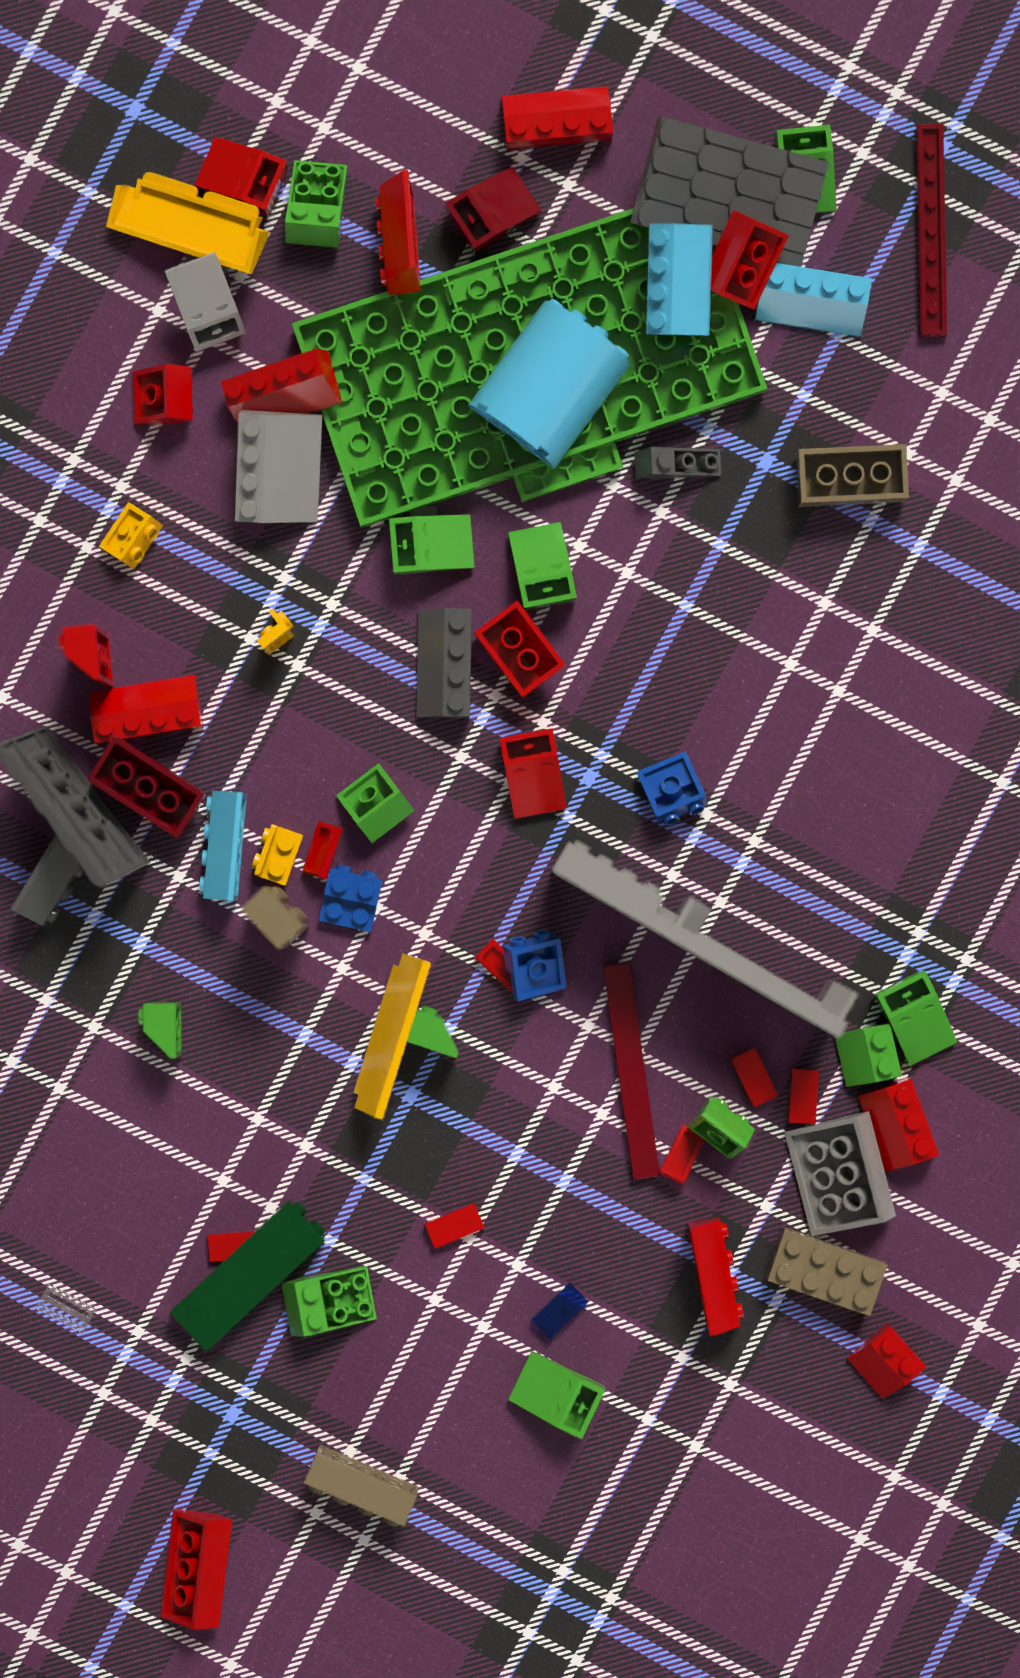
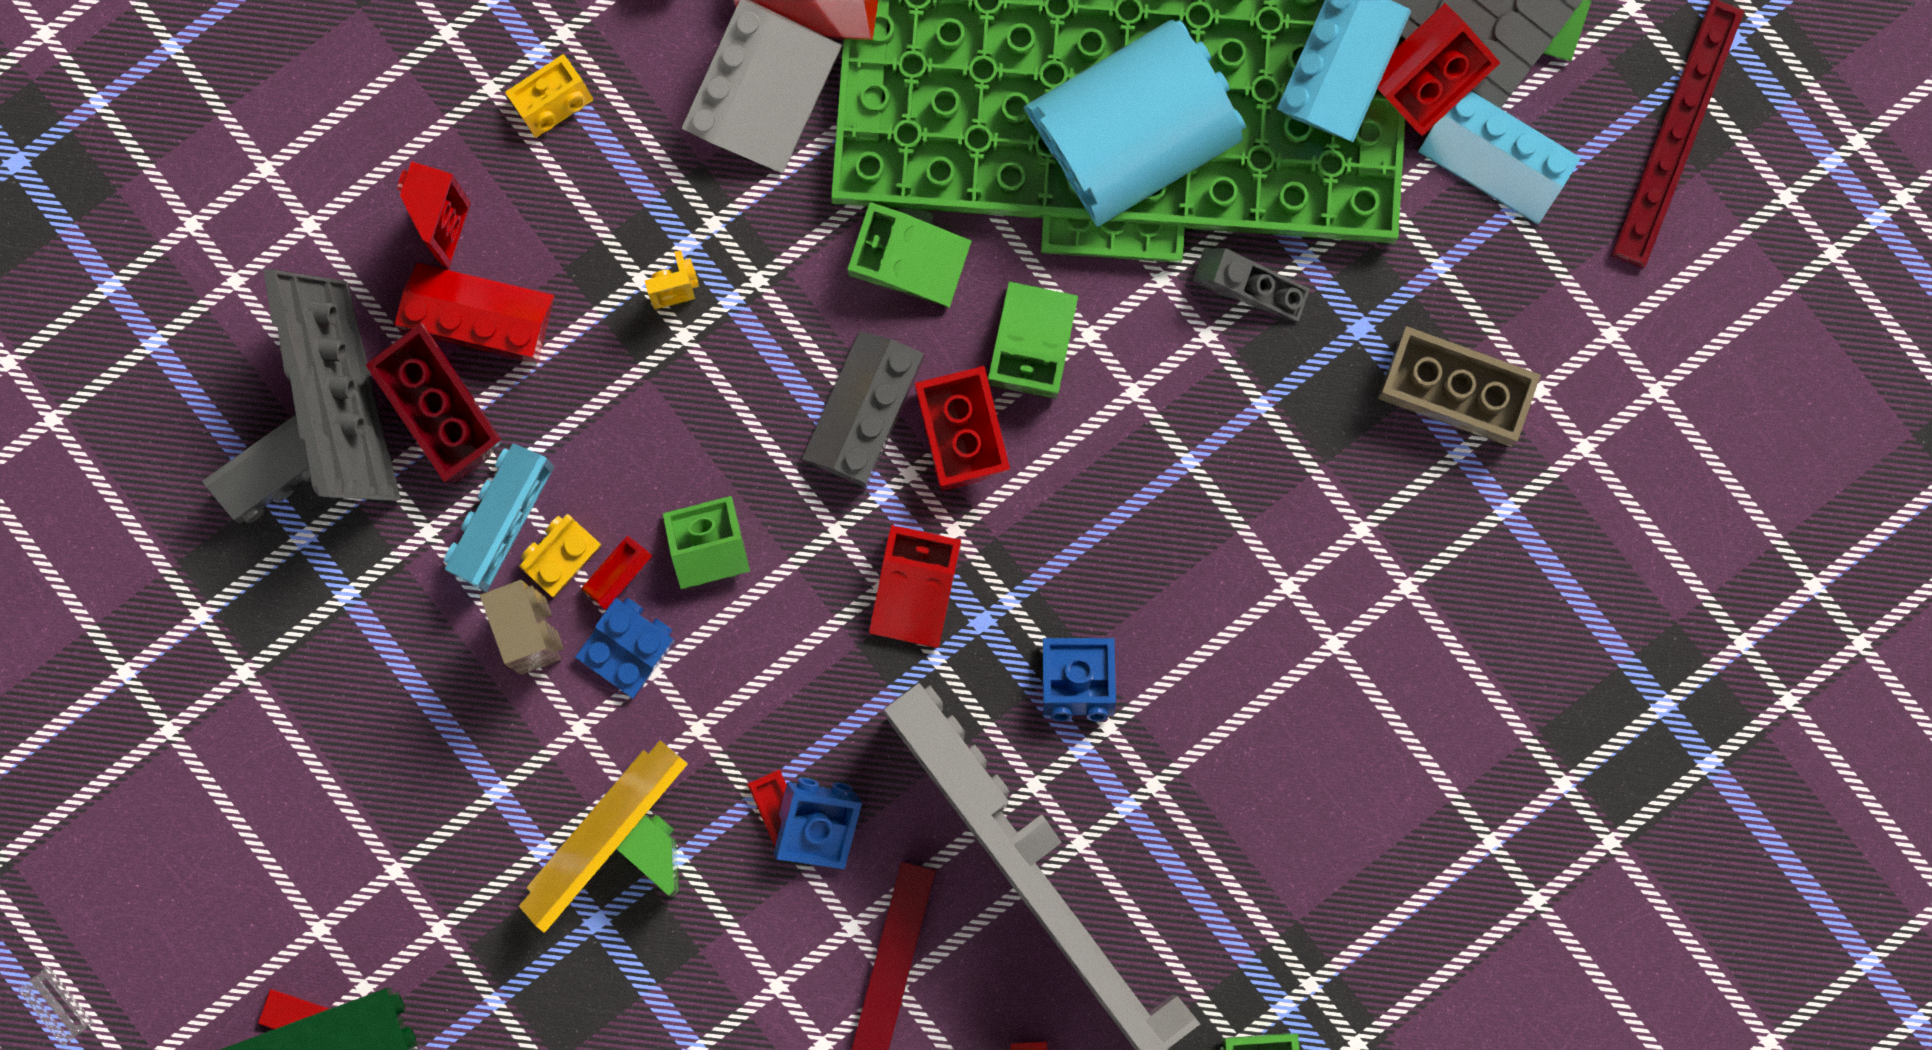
camera: 20 degrees right, 5 degrees down
(163, 1025) = (327, 705): bright green slope -> none

